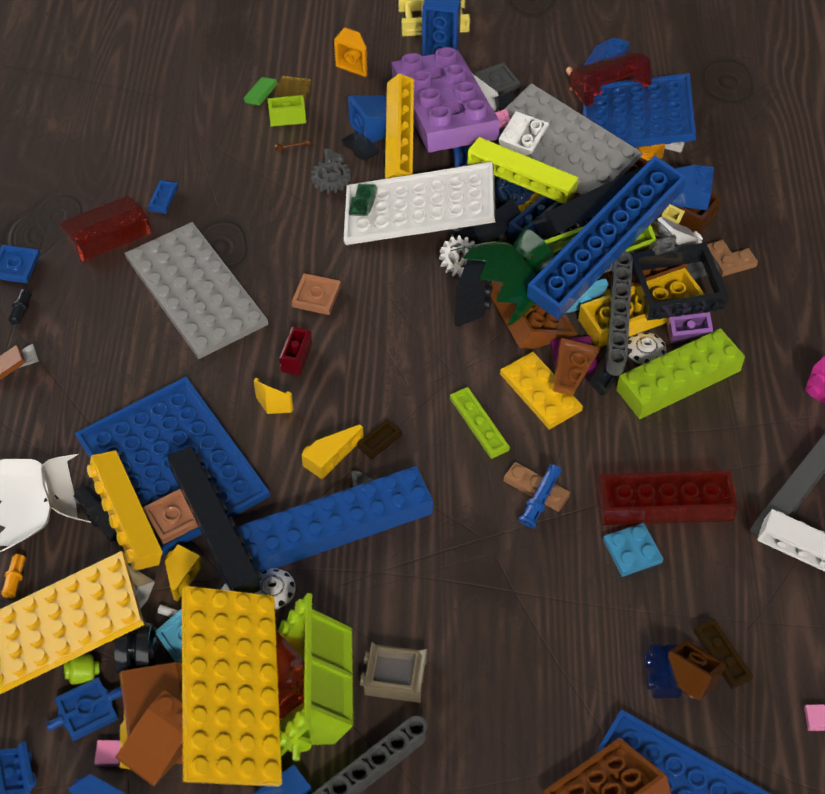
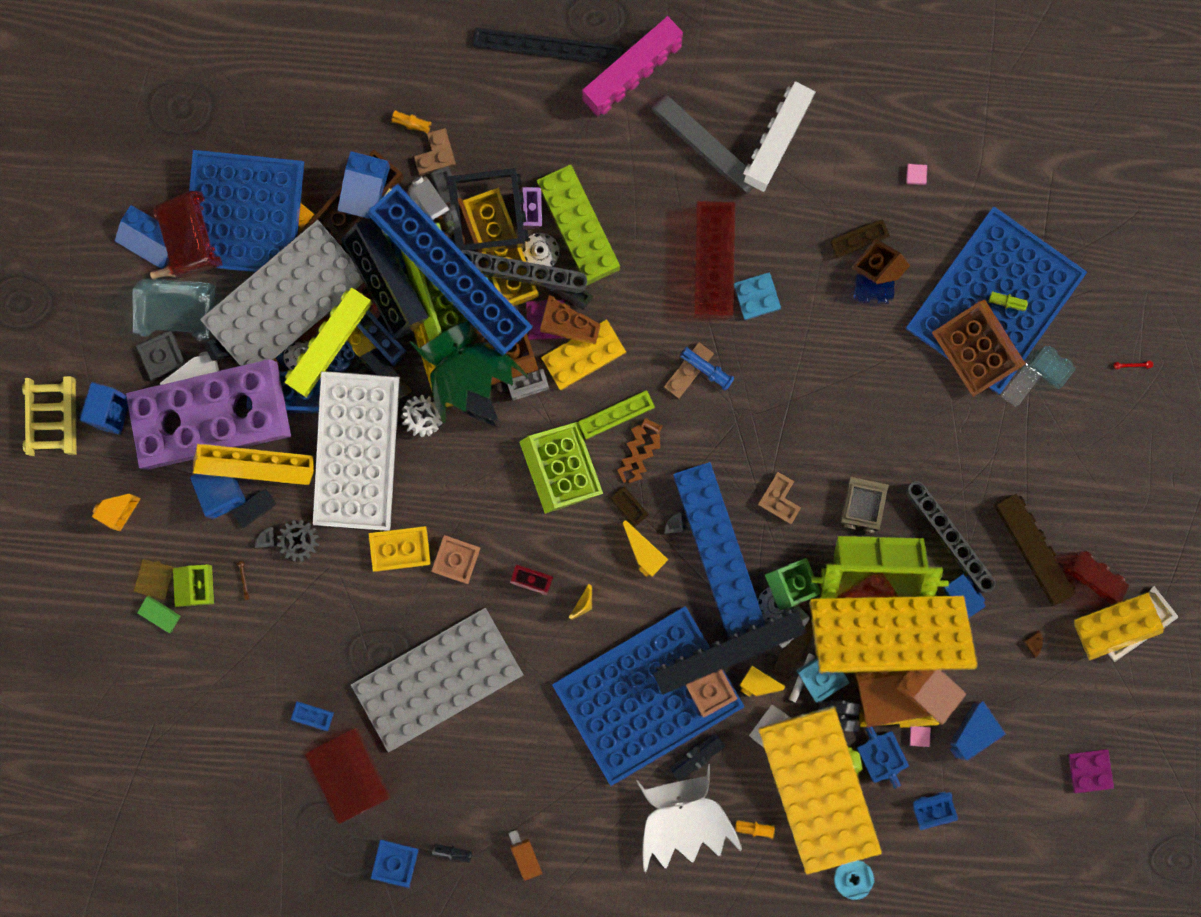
camera: 85 degrees left, 30 degrees up
(124, 510) = (705, 732): yellow brick -> none
(292, 586) = (792, 584): none -> bright green brick
(325, 250) = (399, 549): none -> yellow plate
(364, 200) = (344, 508): clear green slope -> none
(394, 577) = (775, 501): none -> medium nougat plate
(417, 373) = (560, 467): none -> lime slope
(434, 442) = (636, 457): none -> dark orange piece
(501, 342) = (528, 386): none -> light grey hinge
(504, 118) = (247, 355): bright pink tile -> none
(523, 133) = (283, 335): white slope -> none
(543, 68) = (172, 306): none -> clear light blue windscreen
(757, 235) = (411, 121): none -> light orange pin

